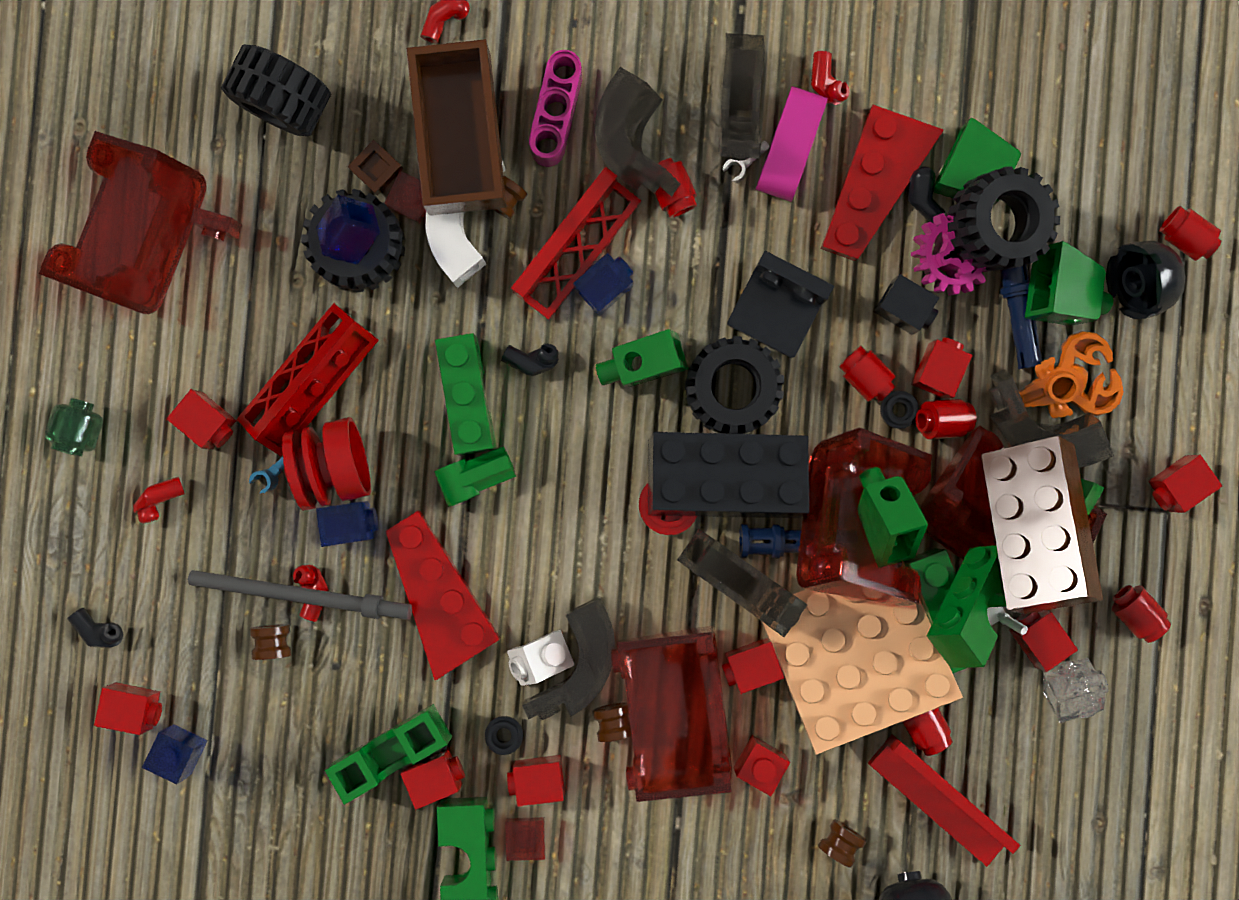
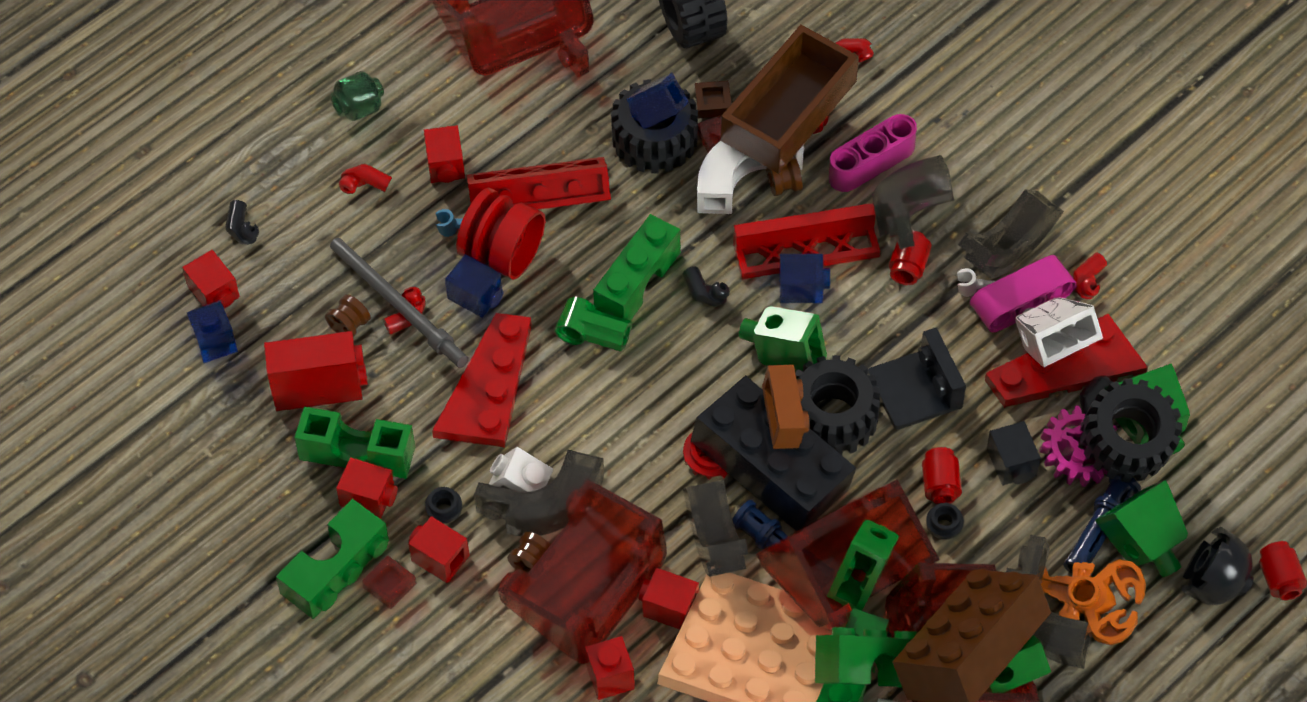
camera: 45 degrees right, 30 degrees down
(296, 724) = (315, 370): none -> red brick
(712, 438) = (783, 406): none -> dark orange piece
(857, 165) = (1058, 329): none -> white torso
(942, 368) = (1001, 514): red brick -> none
(945, 418) = (972, 544): red brick -> none

